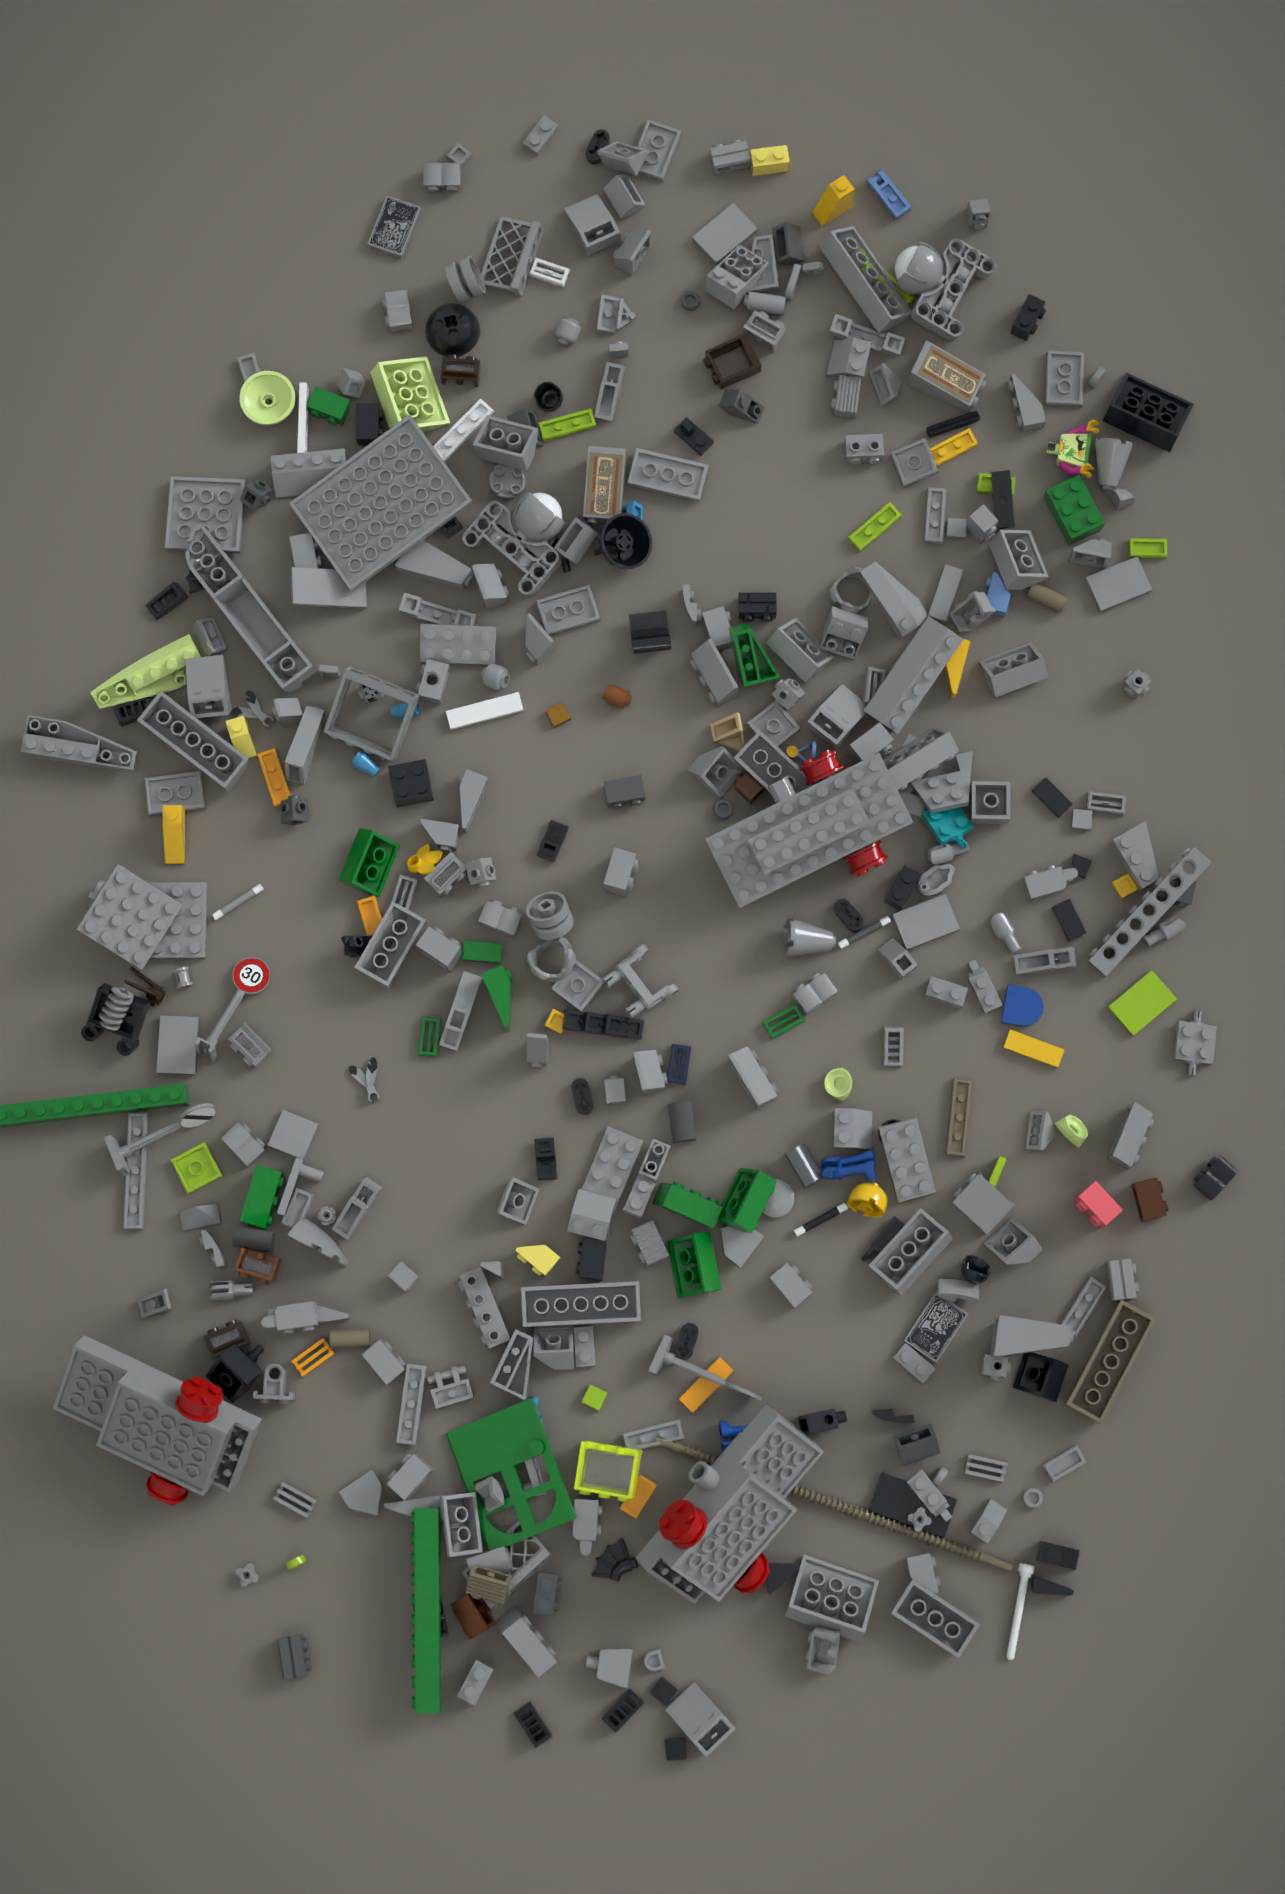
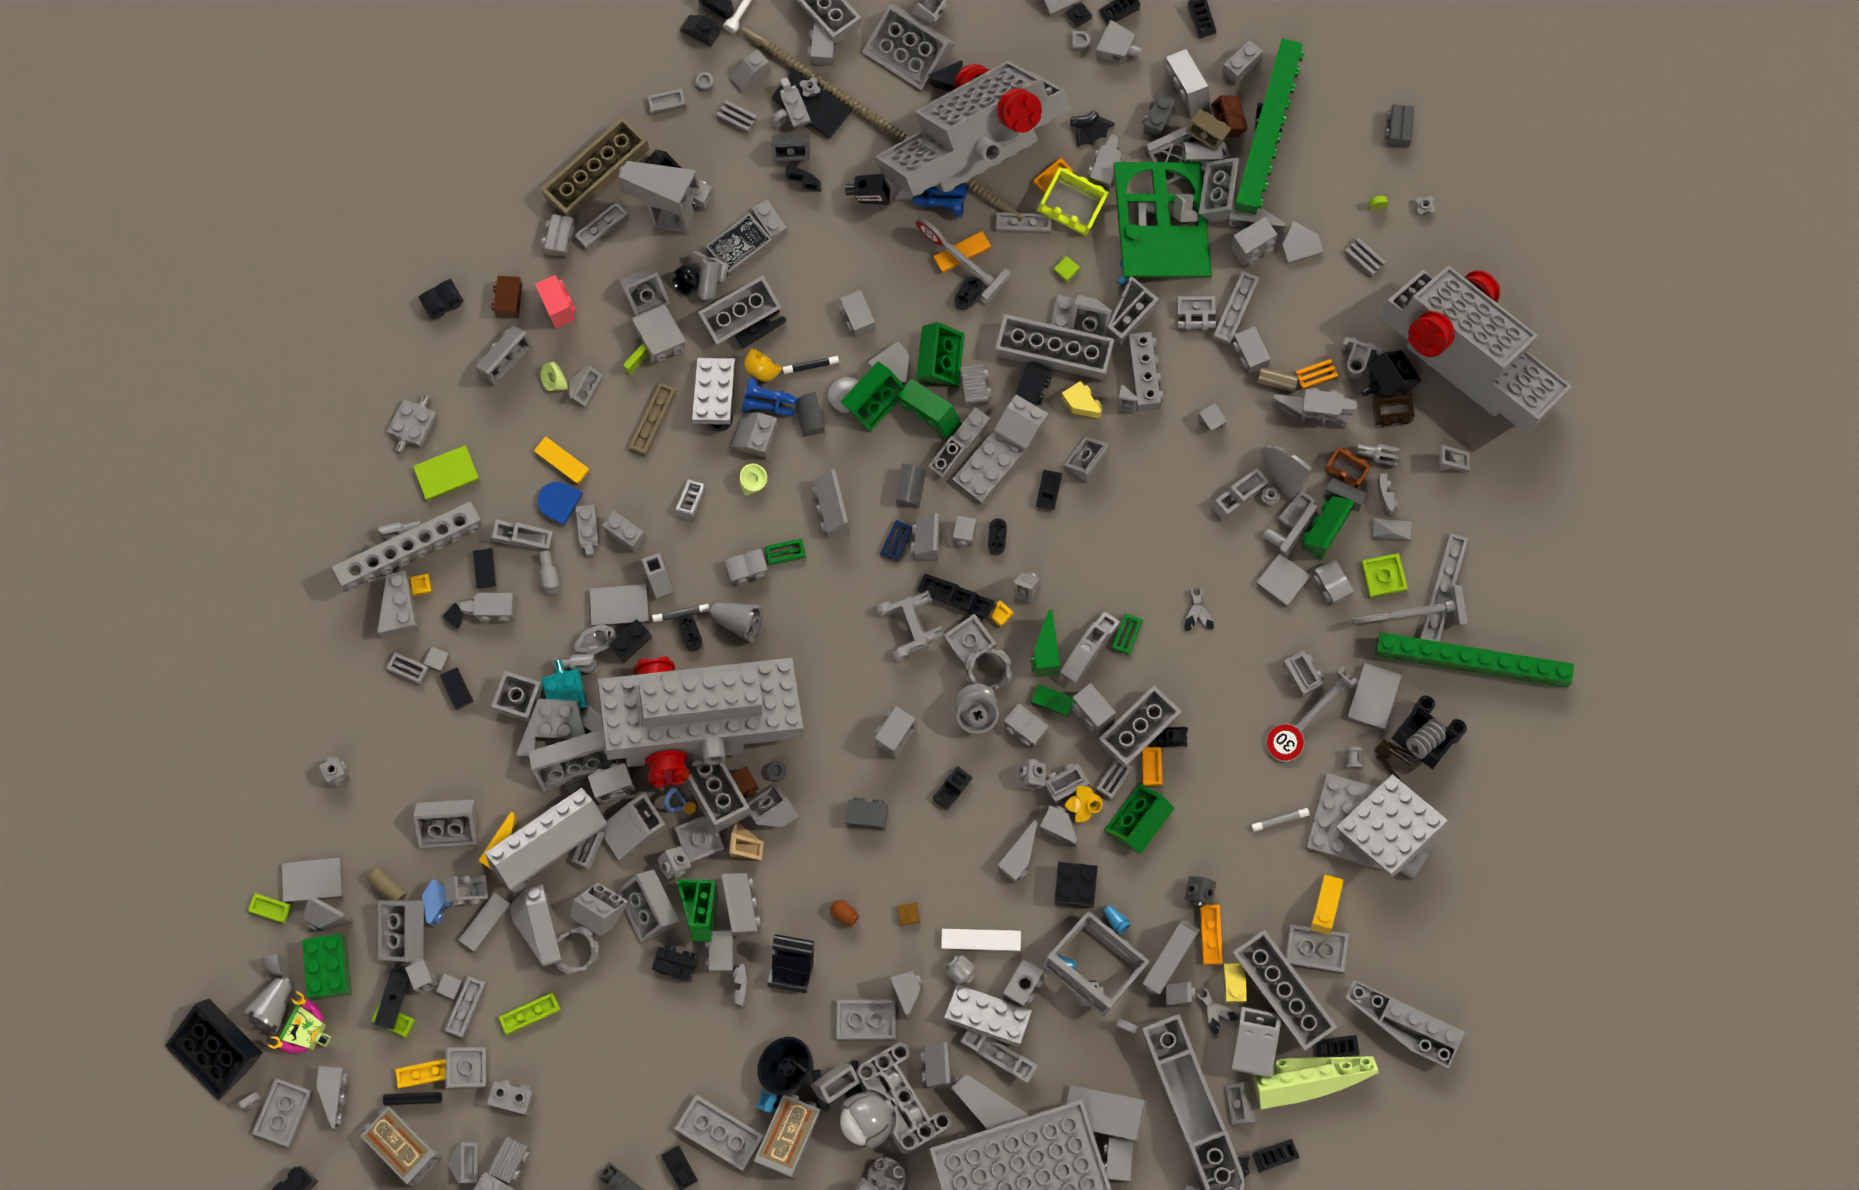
camera: 160 degrees left, 5 degrees down
(952, 1275) = (708, 278): none -> light grey brick

